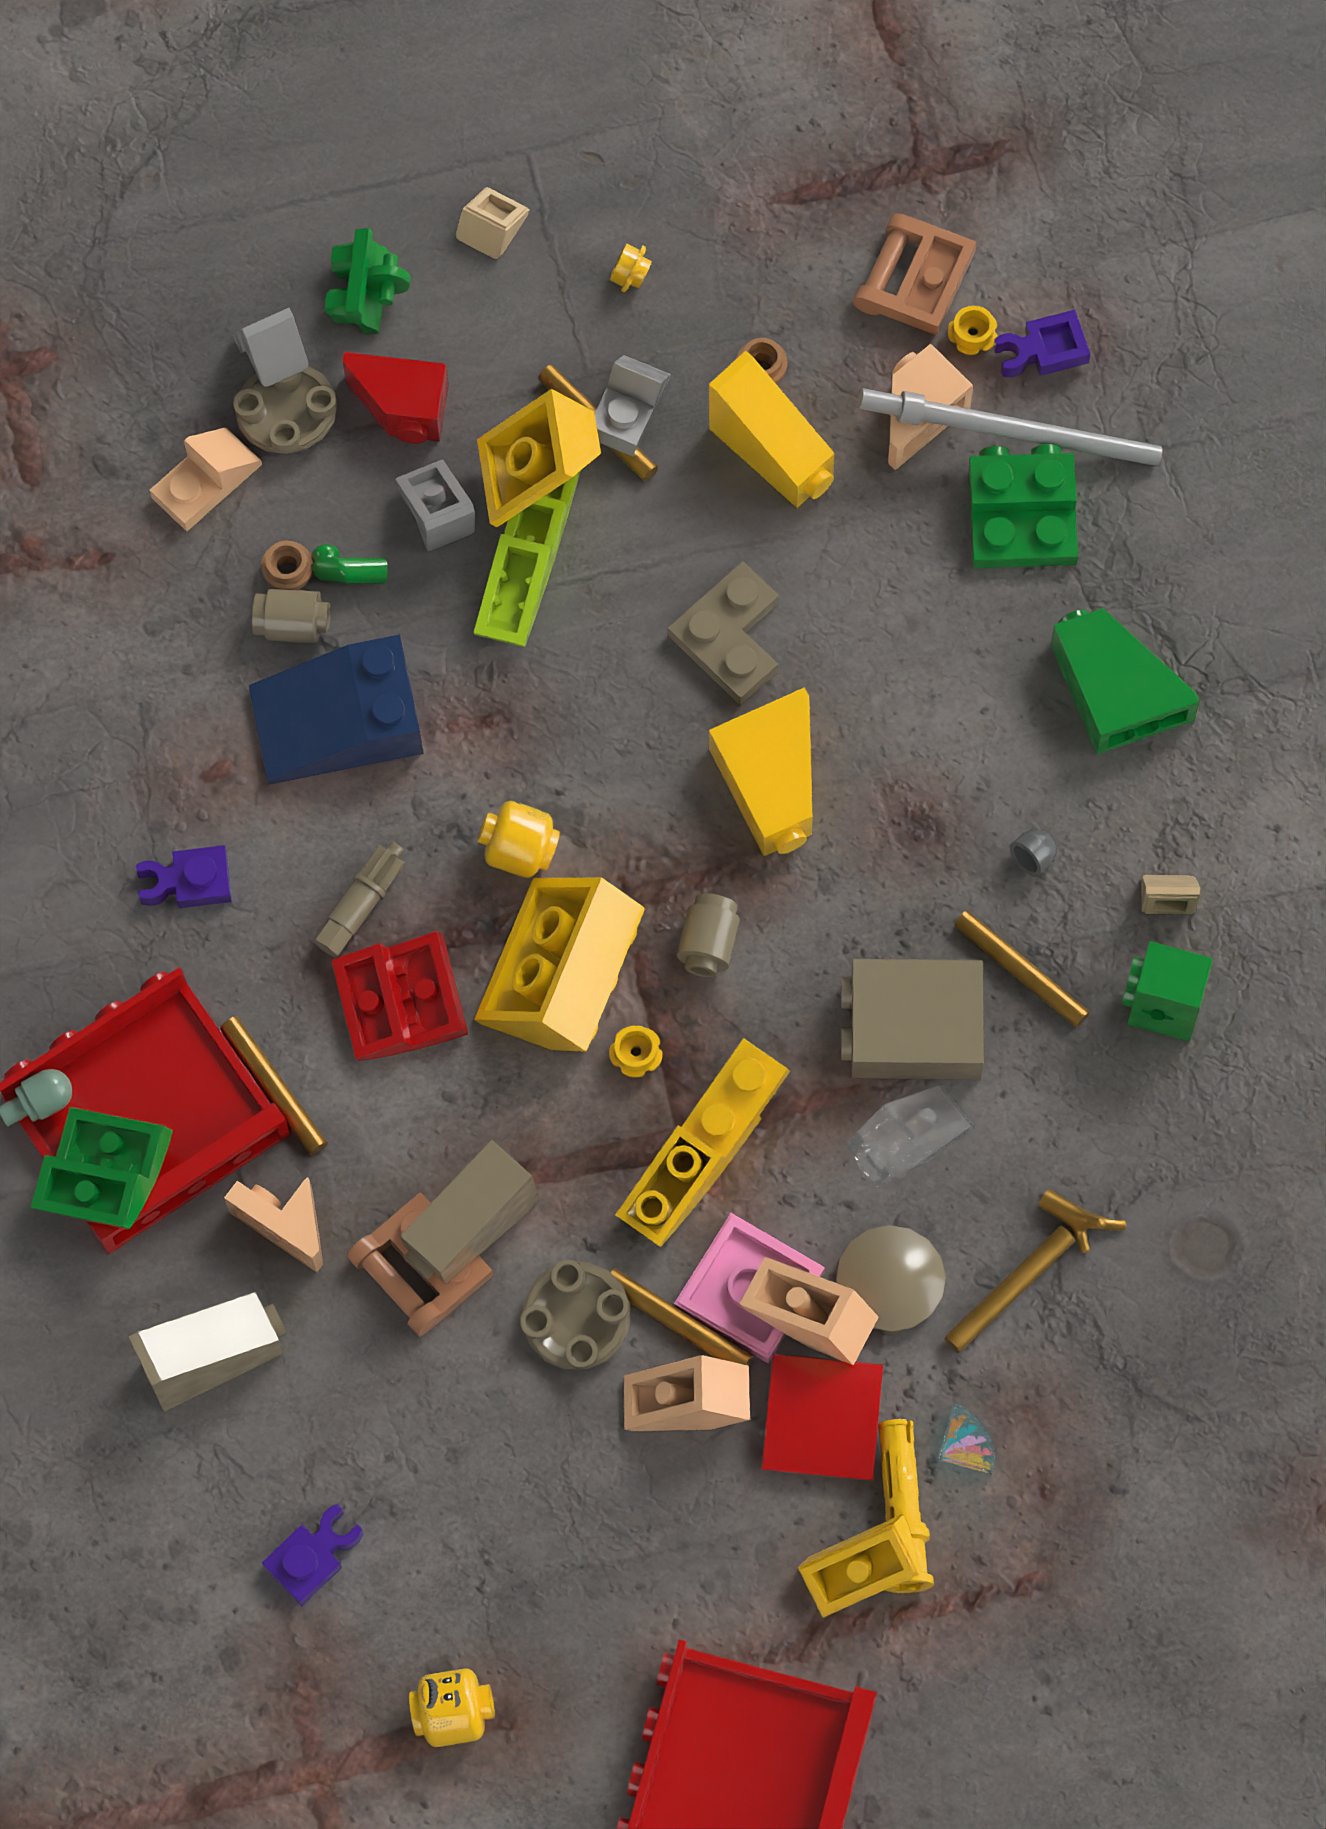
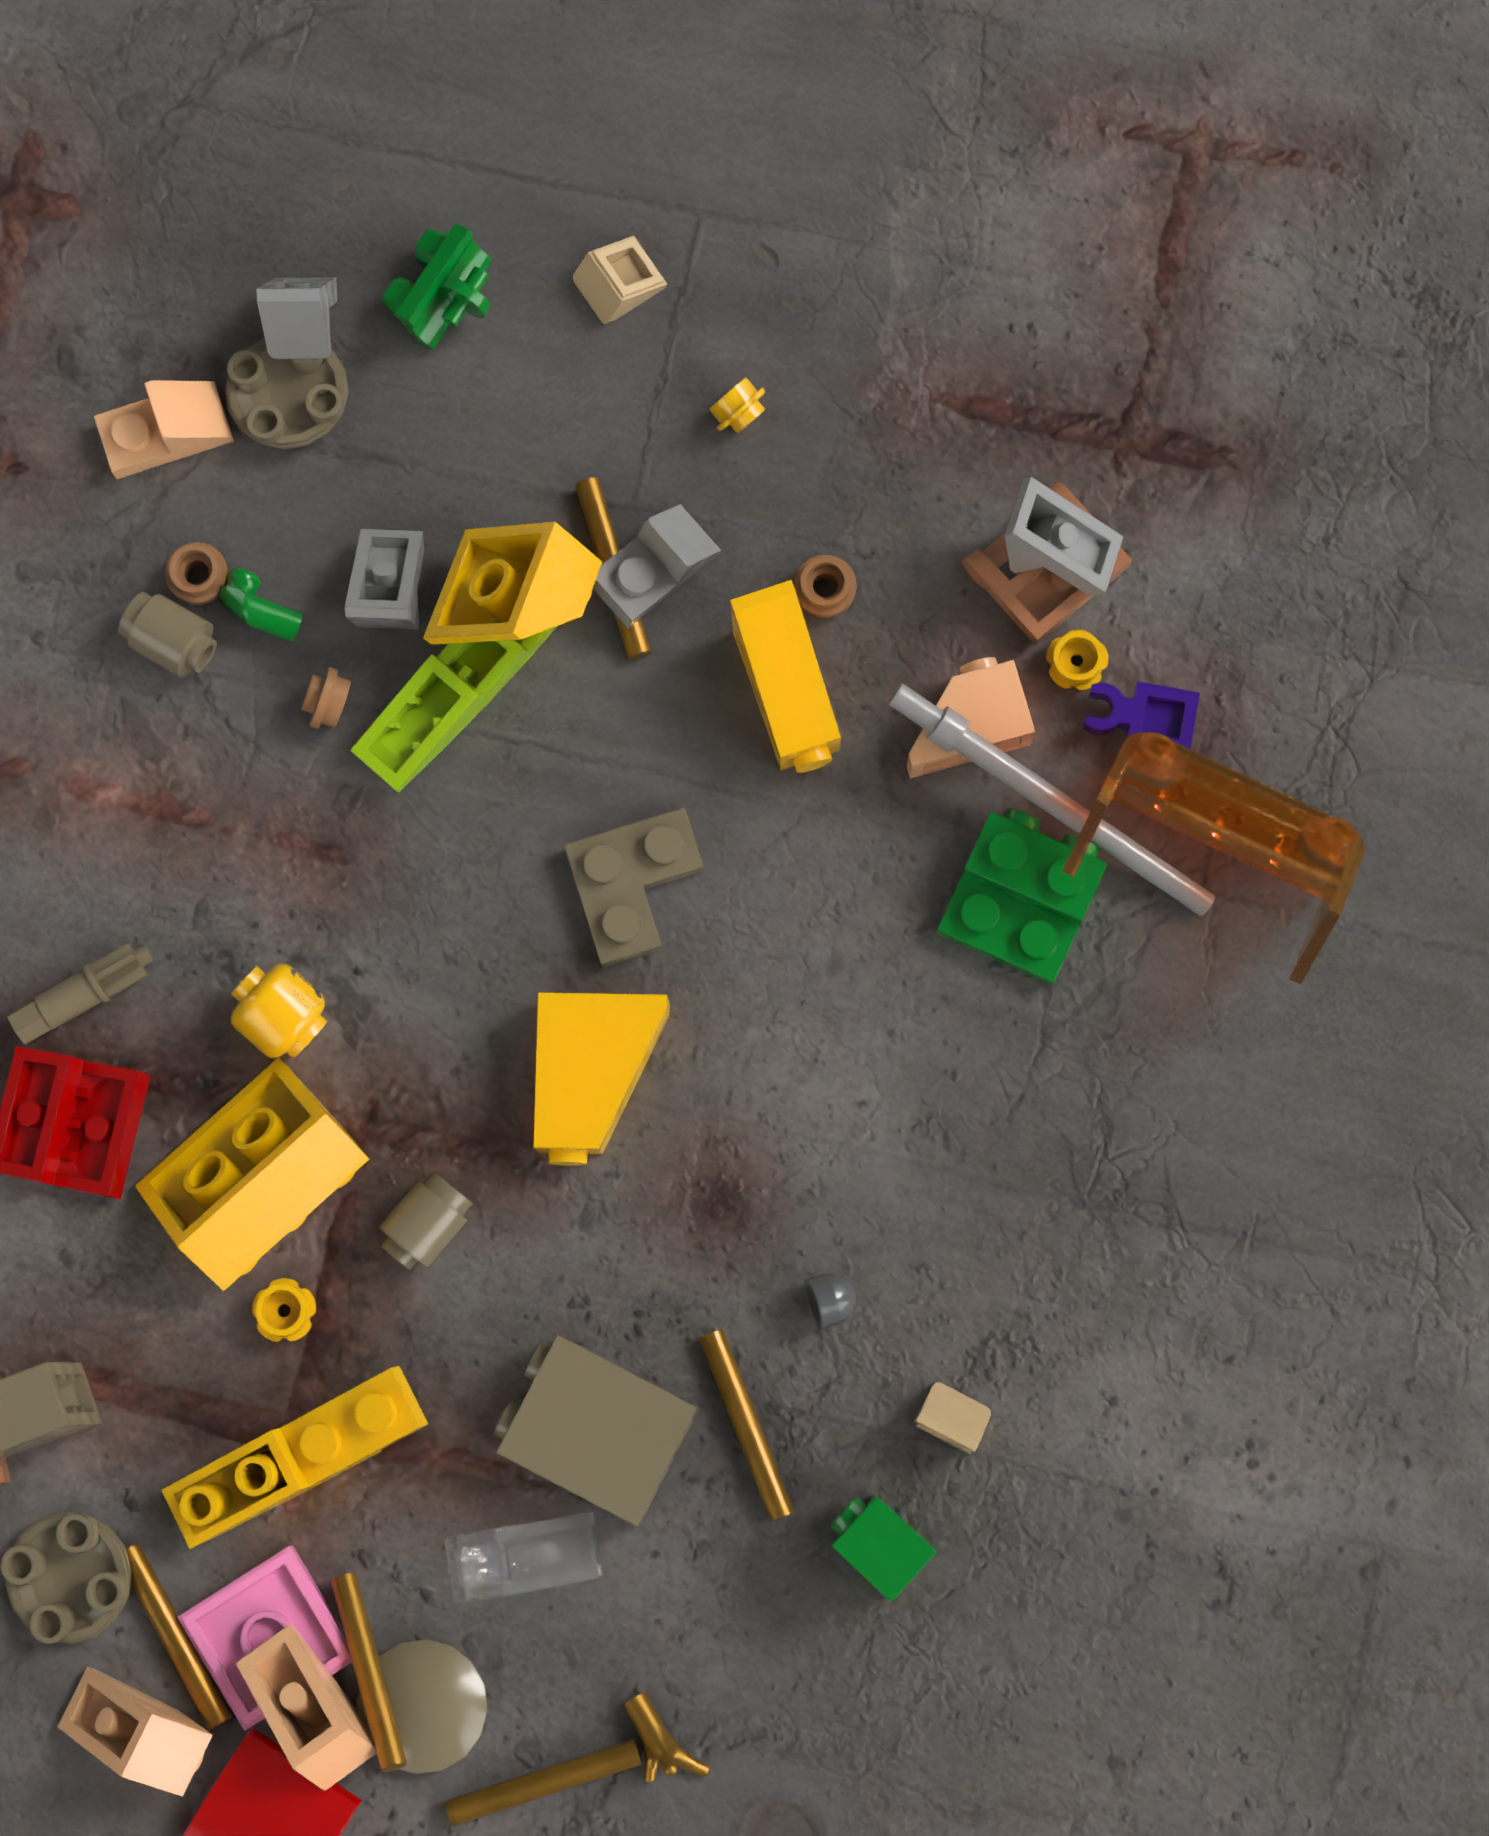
camera: 30 degrees right, 10 degrees up
(337, 712) = (165, 768): dark blue slope -> none
(400, 394) = (415, 438): red slope -> none
(434, 607) = (325, 698): none -> medium nougat plate
(839, 1267) = (369, 1672): none -> pearl gold bar
(921, 242) = (1061, 538): none -> light grey slope
(1118, 681) = (1019, 1150): green slope -> none
(1151, 375) = (1237, 819): none -> clear orange windscreen

